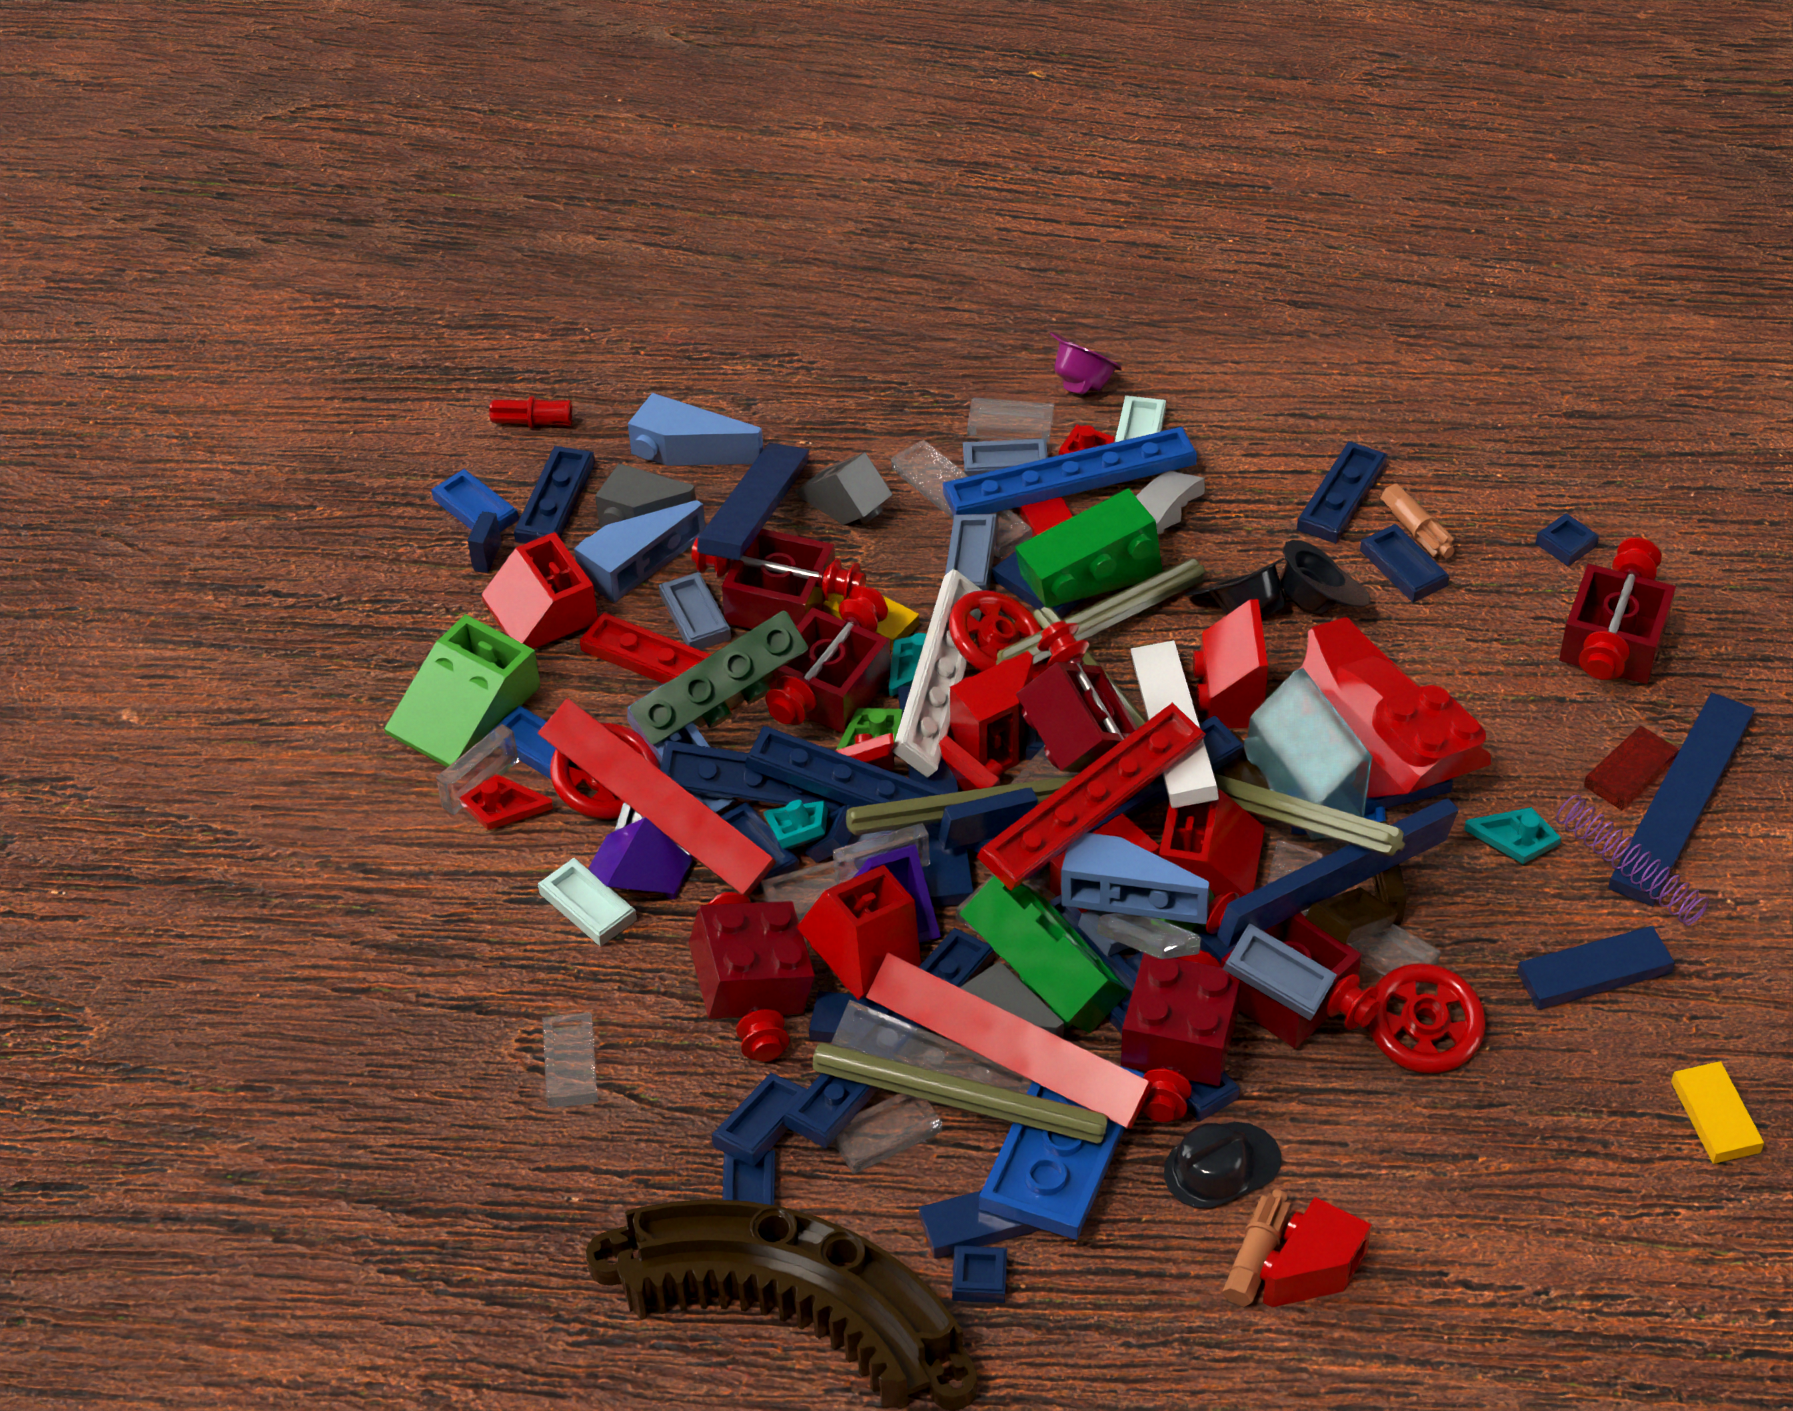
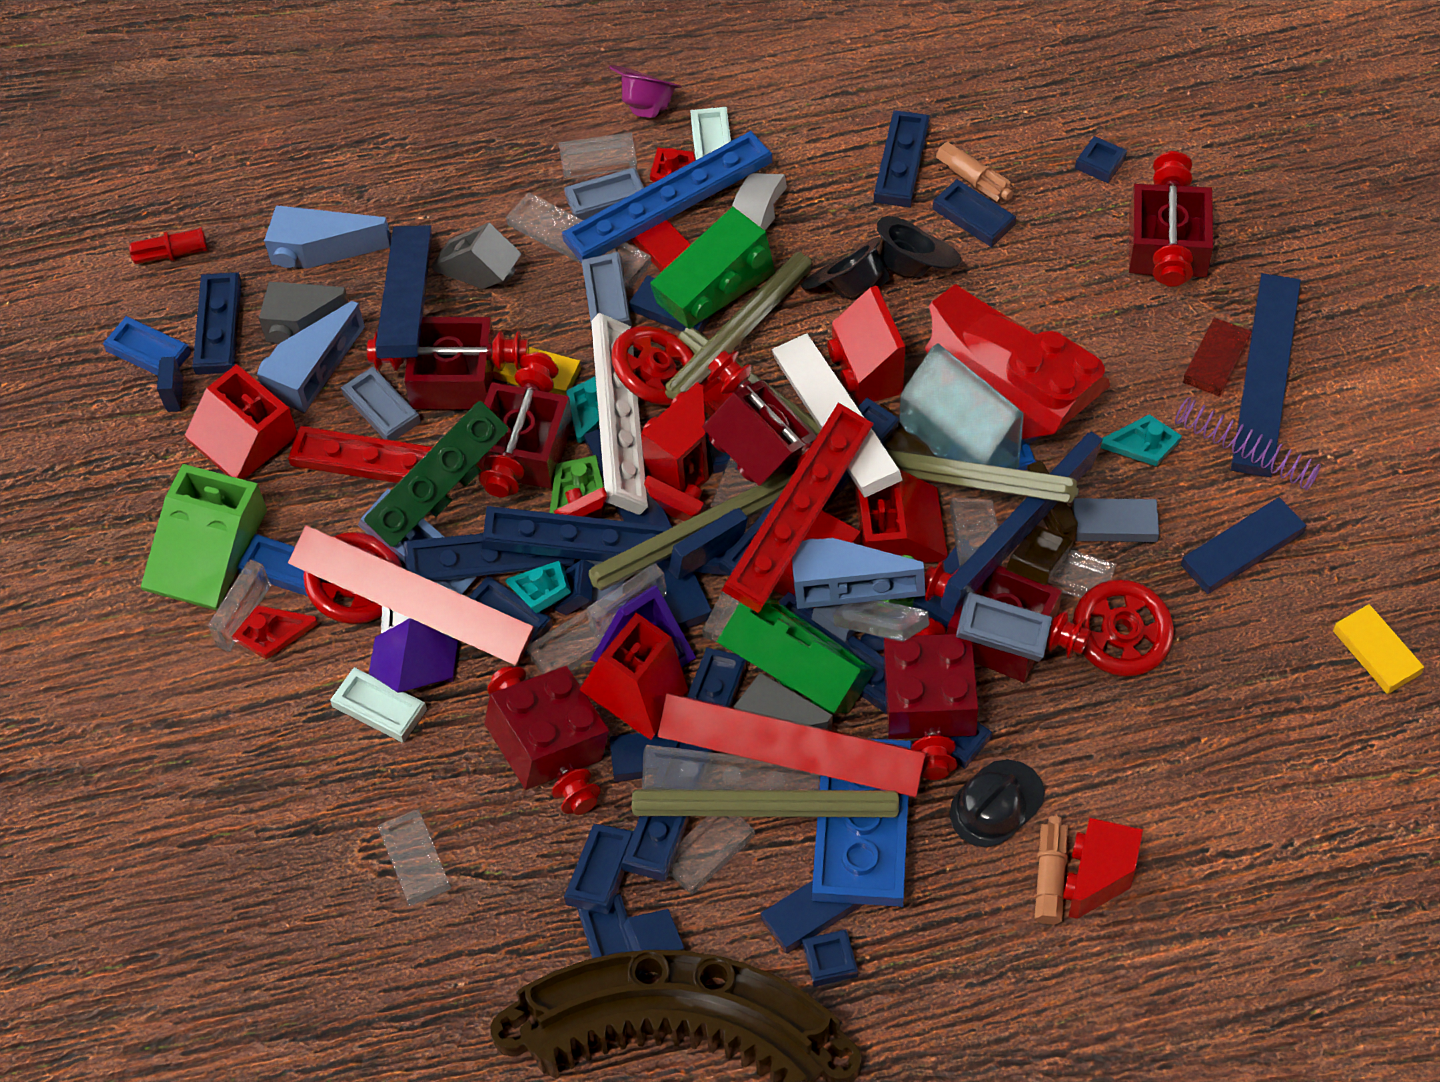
camera: 15 degrees left, 10 degrees up
(795, 1192) = (653, 932): none -> dark blue tile
(1456, 907) = (1116, 519): none -> sand blue tile

